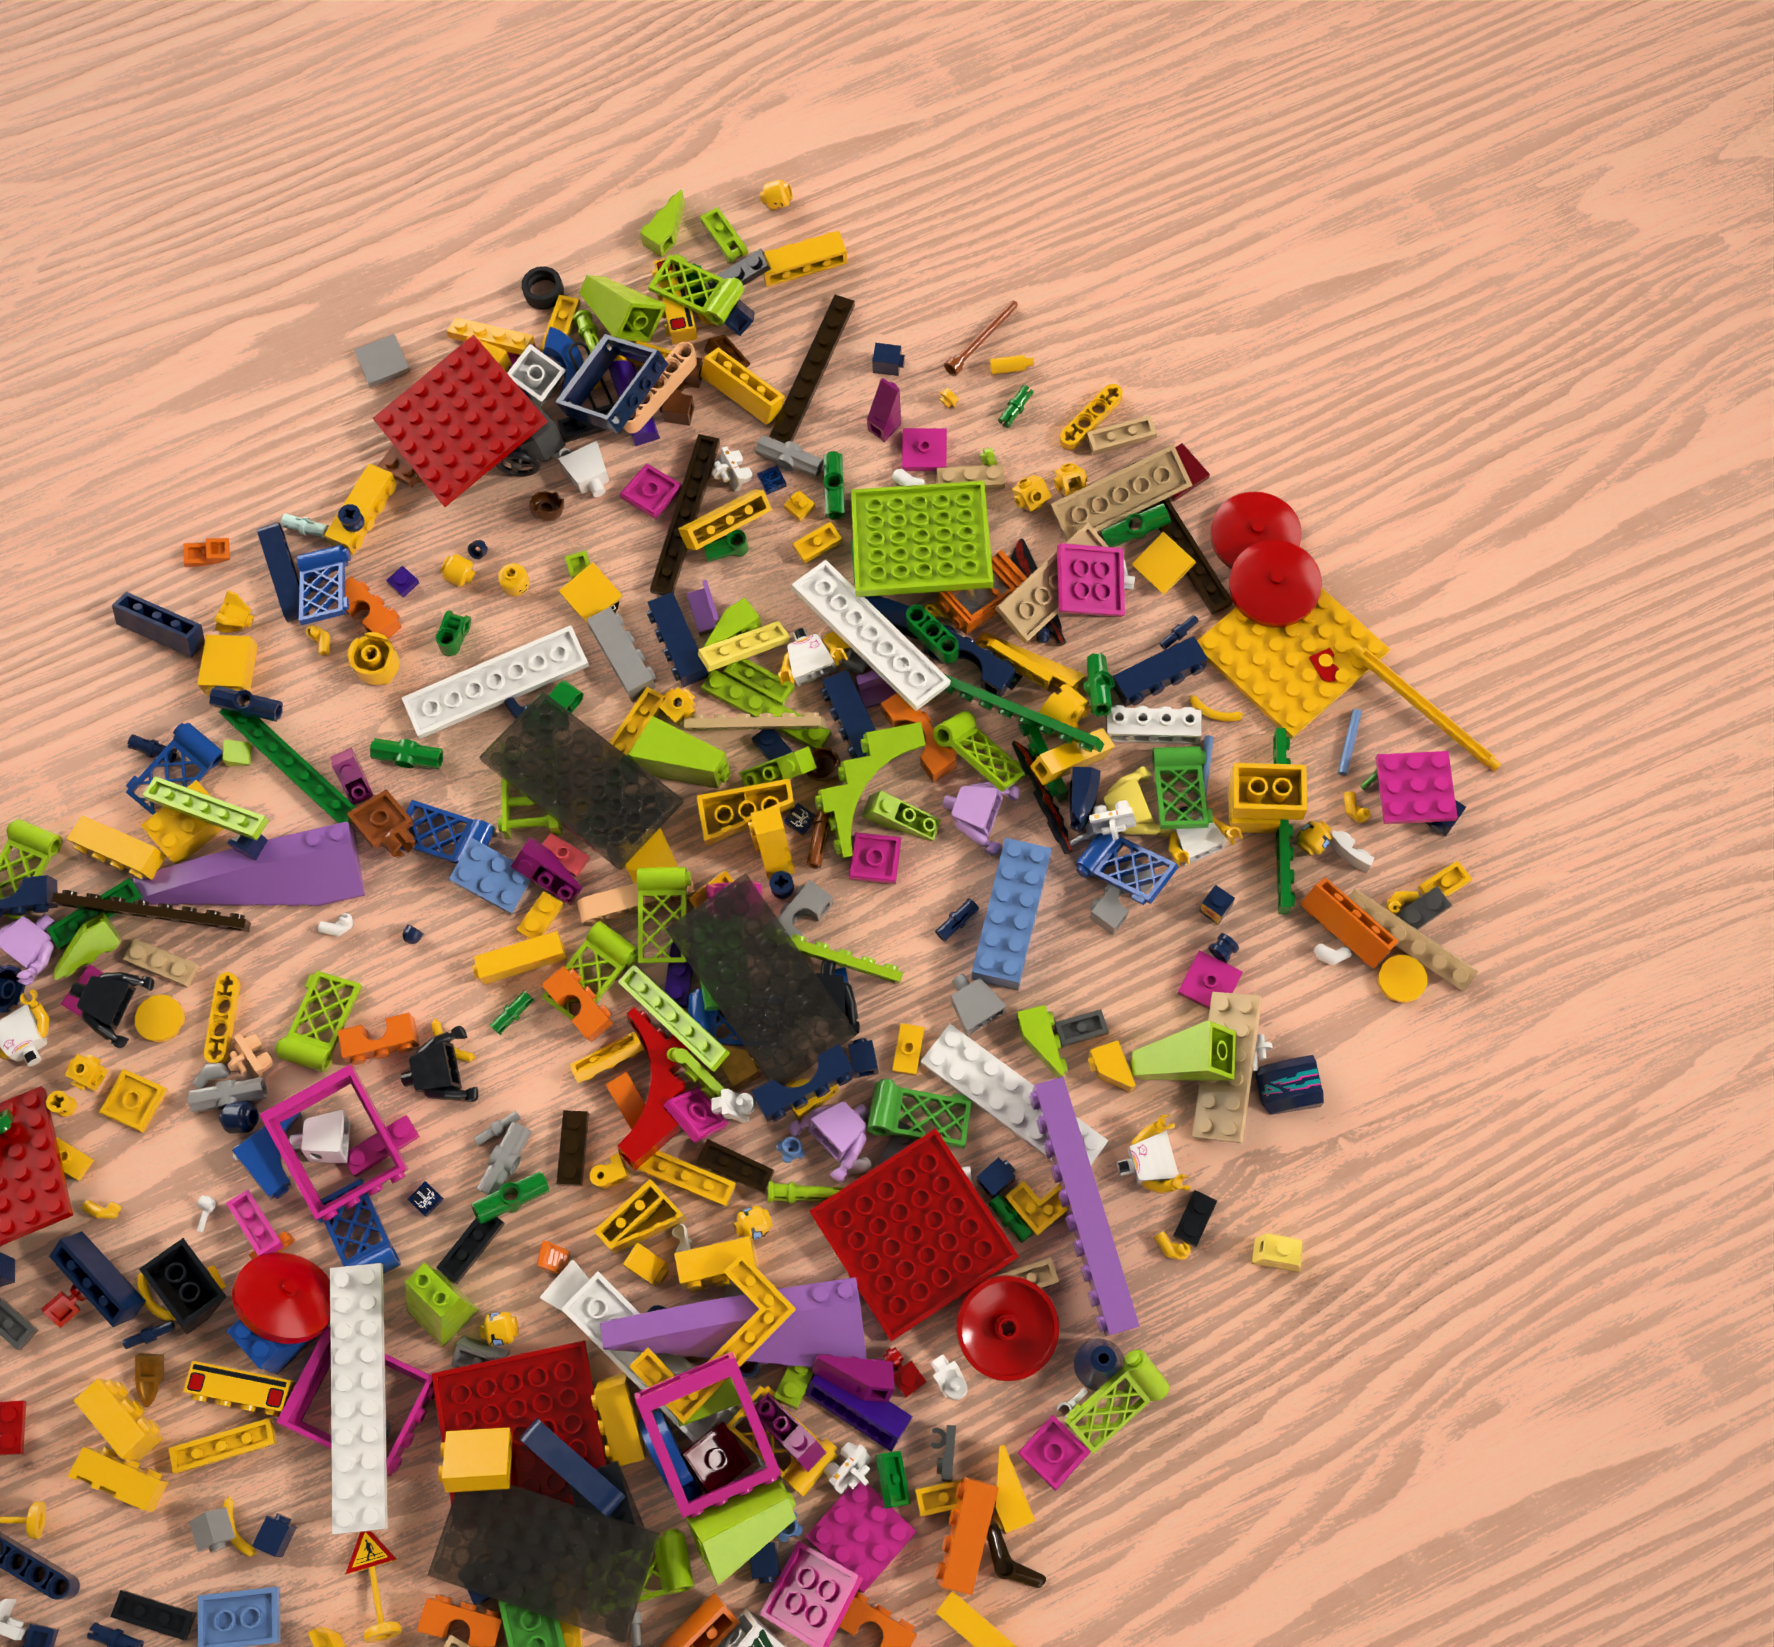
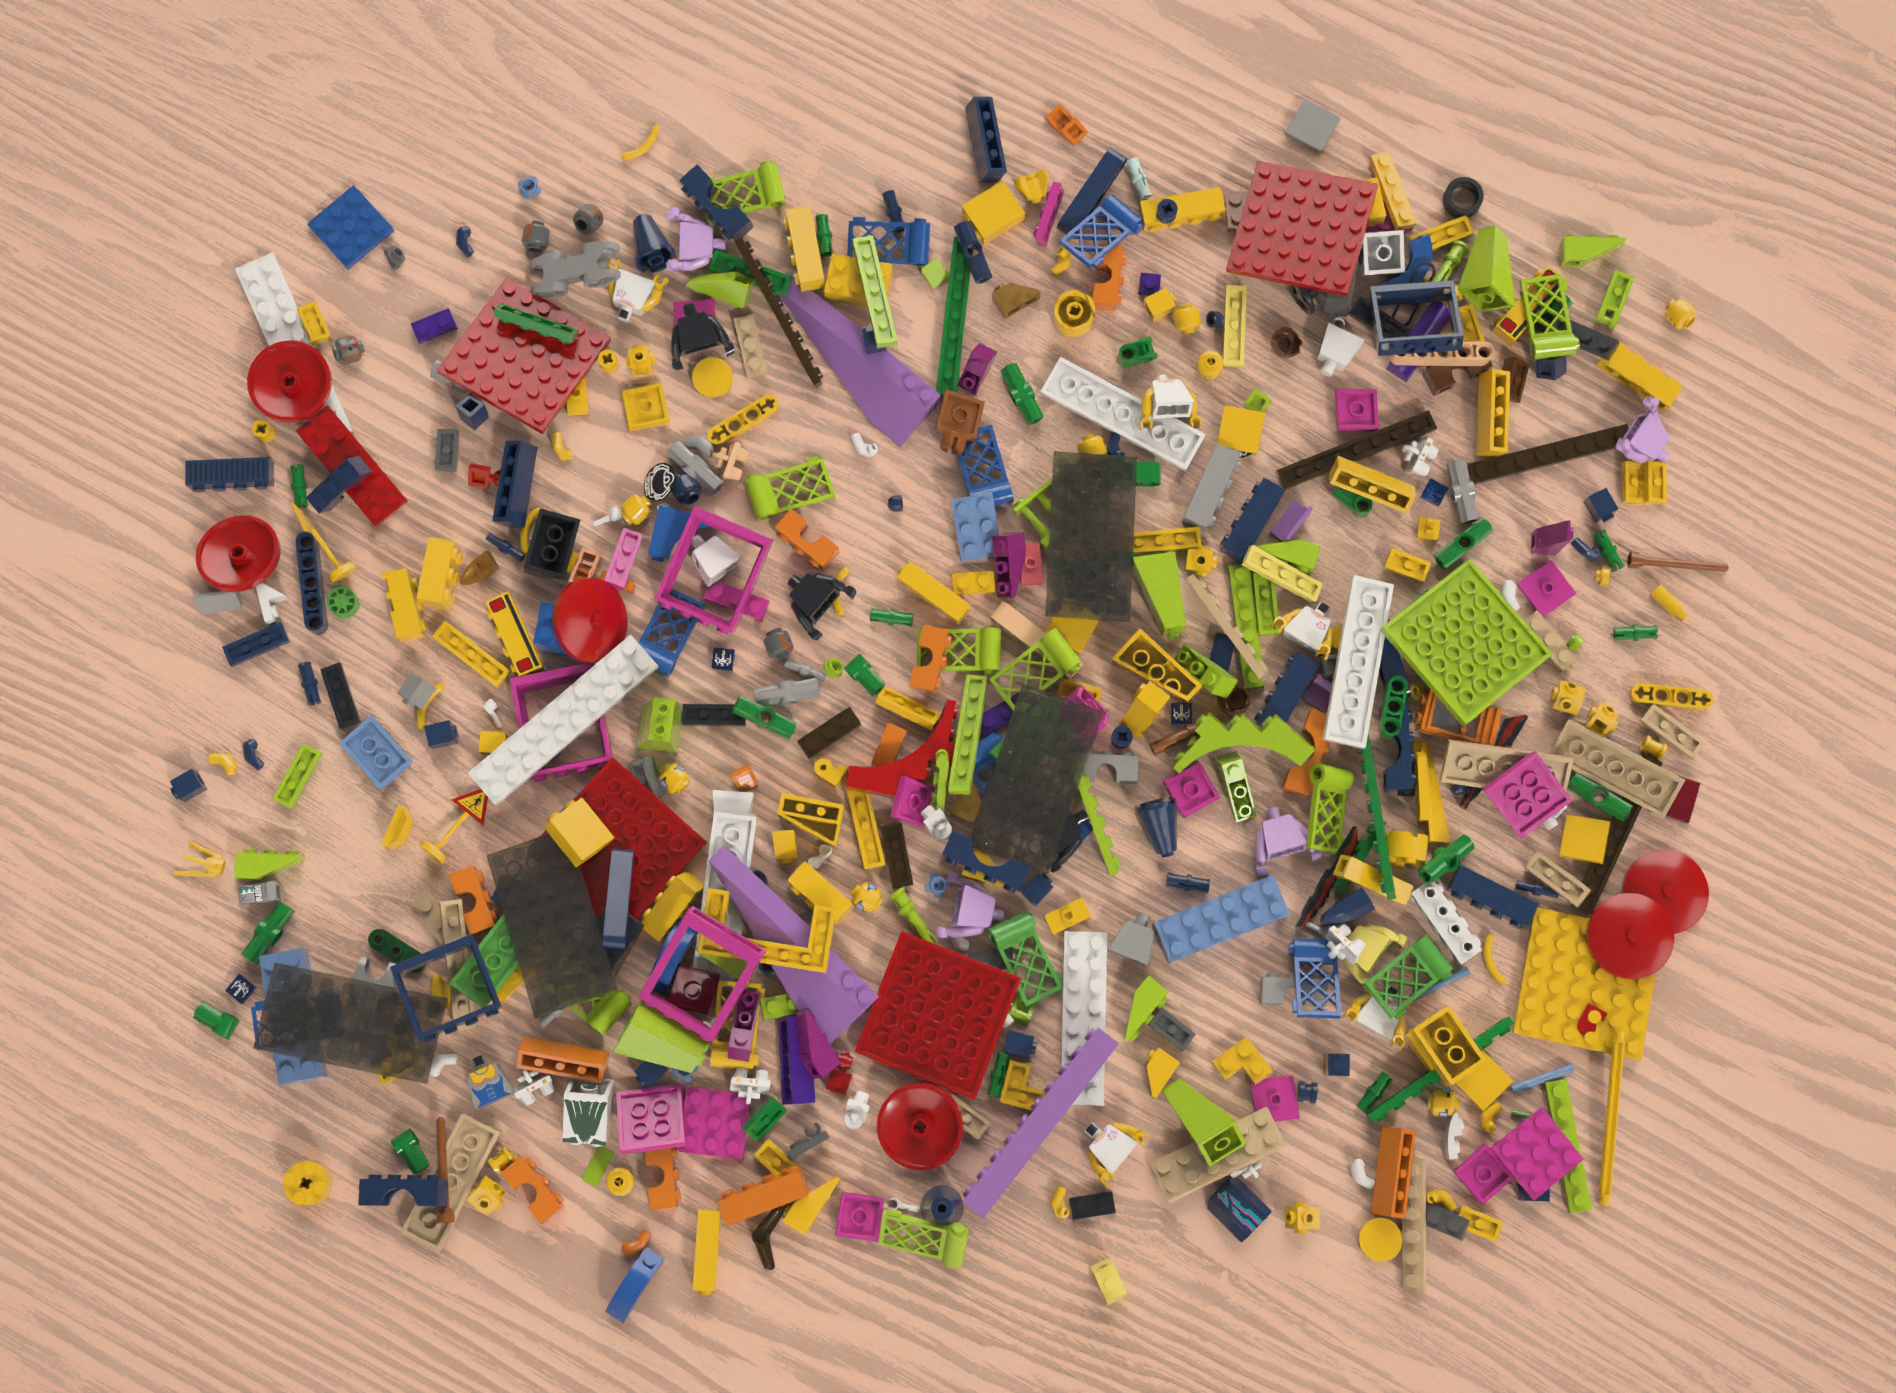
camera: 50 degrees right, 10 degrees up
(66, 1542) = (342, 602): none -> bright green wheel
(119, 823) = (824, 235): none -> green pin
(212, 1137) = (659, 482): none -> black sticker
(219, 1178) = (636, 509): none -> yellow head
(223, 1257) = (577, 569): none -> orange slope
(269, 619) = (1048, 214): none -> dark pink plate
(287, 1464) = (490, 706): none -> white hand
(317, 700) = (1013, 298): none -> pearl gold slope
(321, 1488) = (491, 741): none -> yellow brick
(426, 584) = (1159, 304): none -> yellow brick
(453, 1135) = (778, 644): none -> dark grey head
(496, 536) = (1234, 325): none -> light yellow plate
(499, 724) = (1092, 445): none -> yellow head
(516, 632) = (1168, 400): none -> torso
(516, 1099) = (833, 668): none -> lime plate
(539, 1075) = (861, 671): none -> green piece
(856, 285) = (1645, 436): none -> lavender torso
(886, 905) = (1160, 824): none -> dark blue cone
(894, 316) = (1643, 482): none -> yellow slope
(922, 395) = (1585, 551): none -> dark blue arm
(930, 379) = (1609, 550): none -> green pin
(969, 1155) = (1020, 1013): none -> lime slope
(1124, 458) = (1653, 748): none -> yellow bush
(1151, 981) = (1243, 1056): none -> yellow plate
(1183, 607) = (1557, 879): none -> tan plate
(1264, 891) = (1374, 1092): none -> green pin
(1324, 792) = (1484, 1083): none -> yellow tile
(1337, 1032) = (1302, 1217): none -> yellow brick
(1402, 848) = (1483, 1174): none -> dark pink plate
(1464, 778) = (1562, 1114): none -> lime plate

